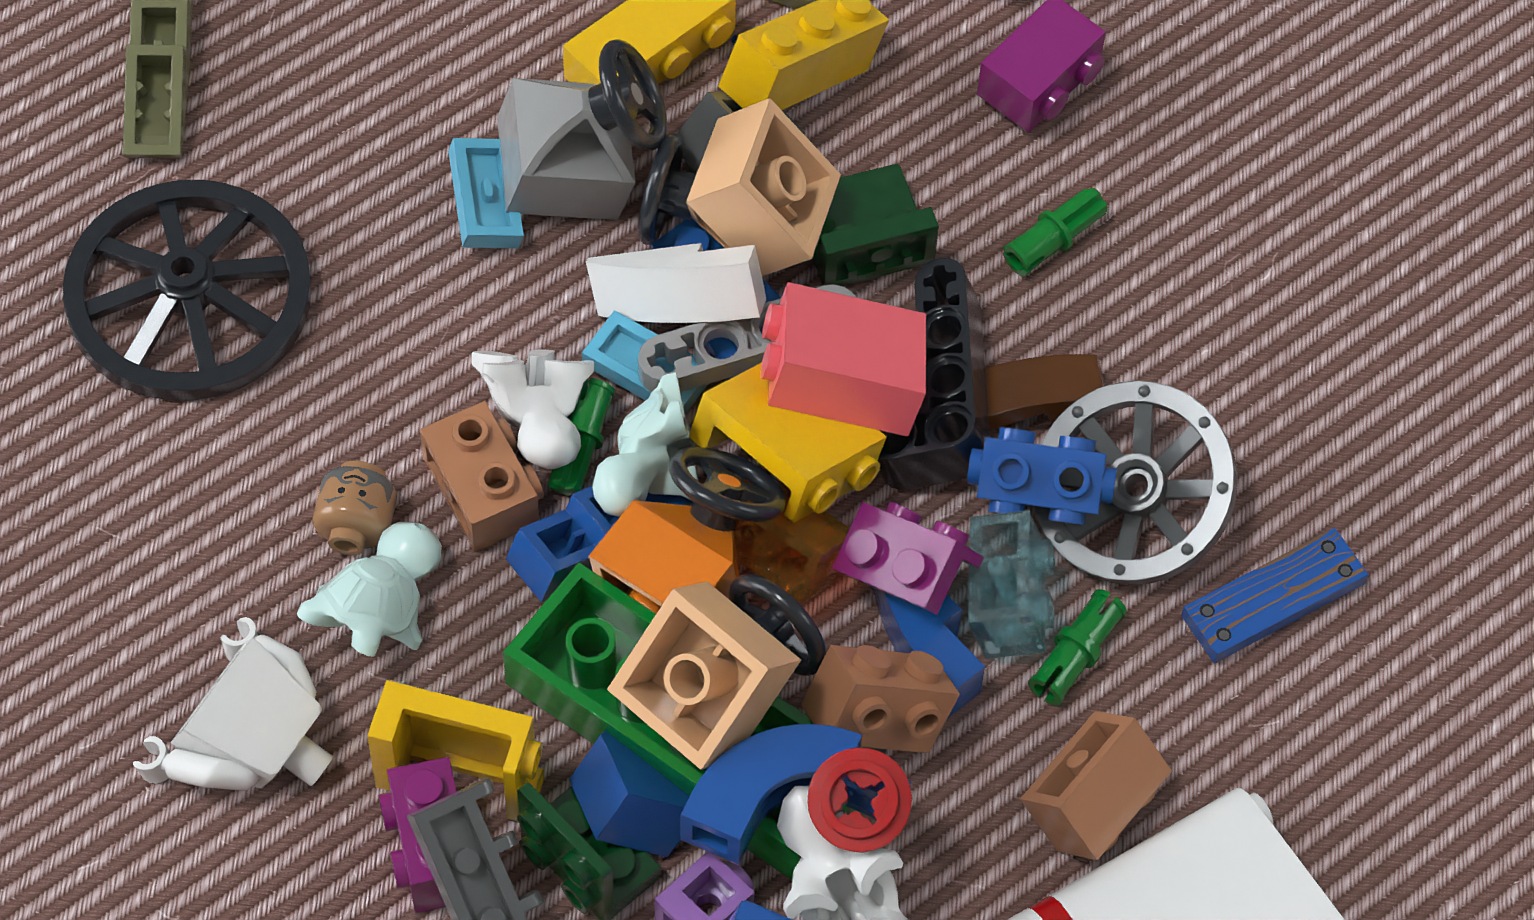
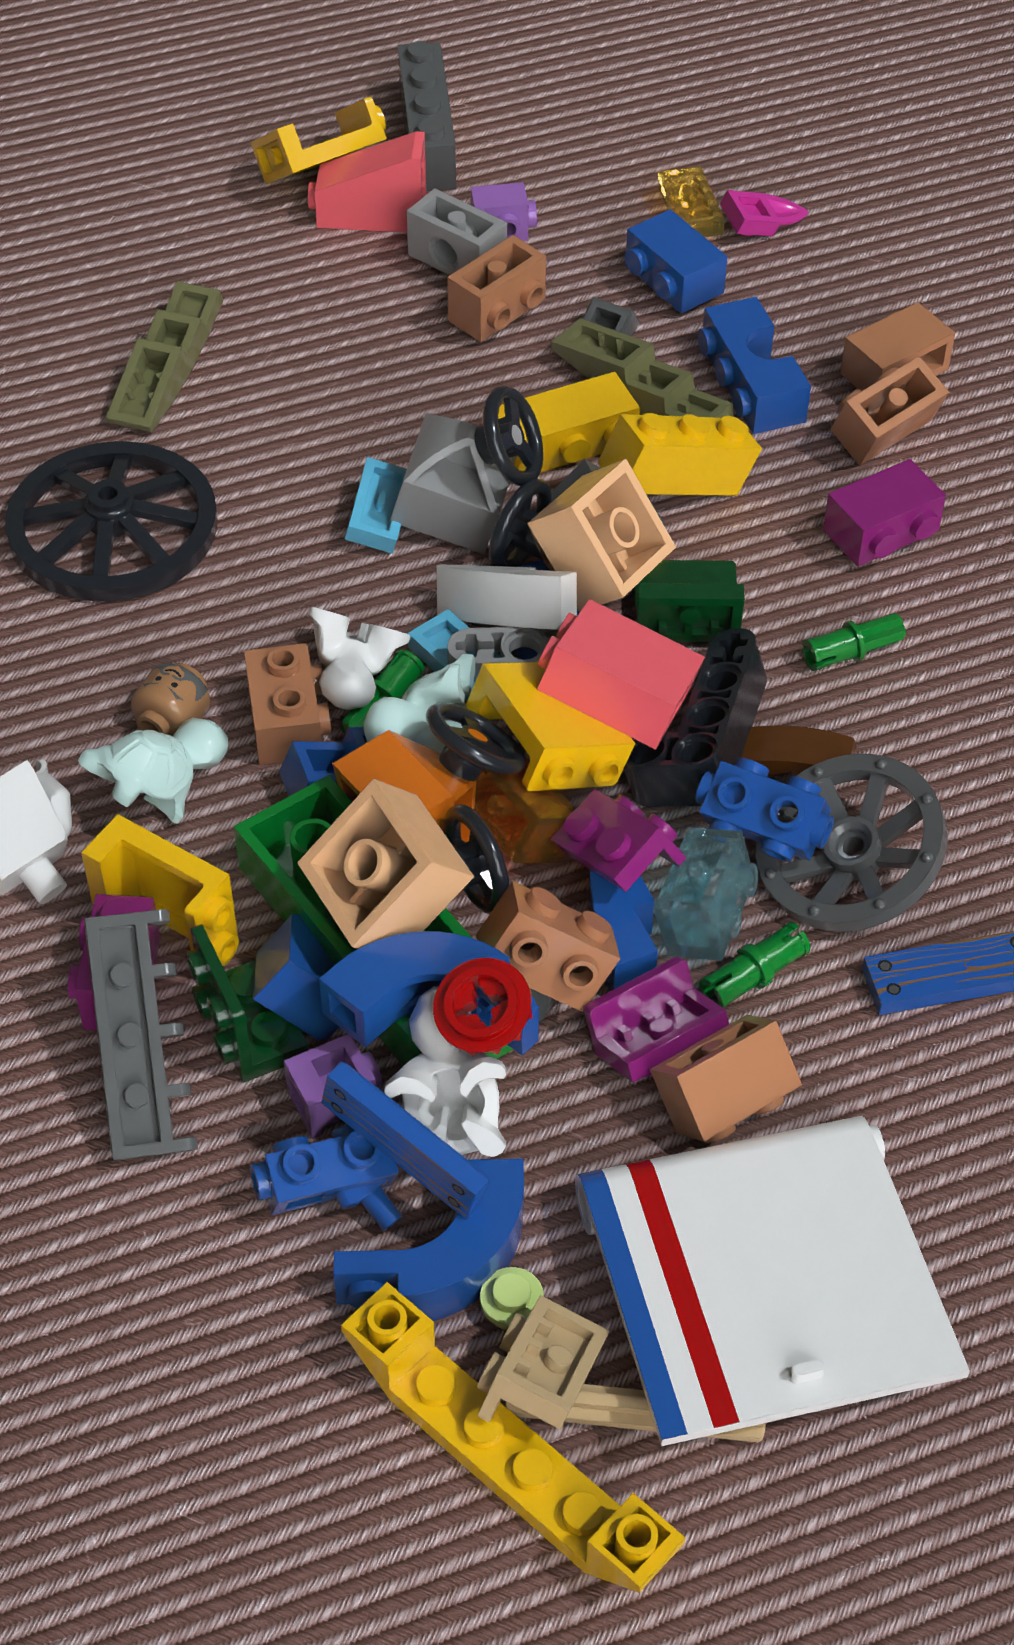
camera: 20 degrees right, 10 degrees down
(1002, 742) = (651, 1019): none -> magenta bracket

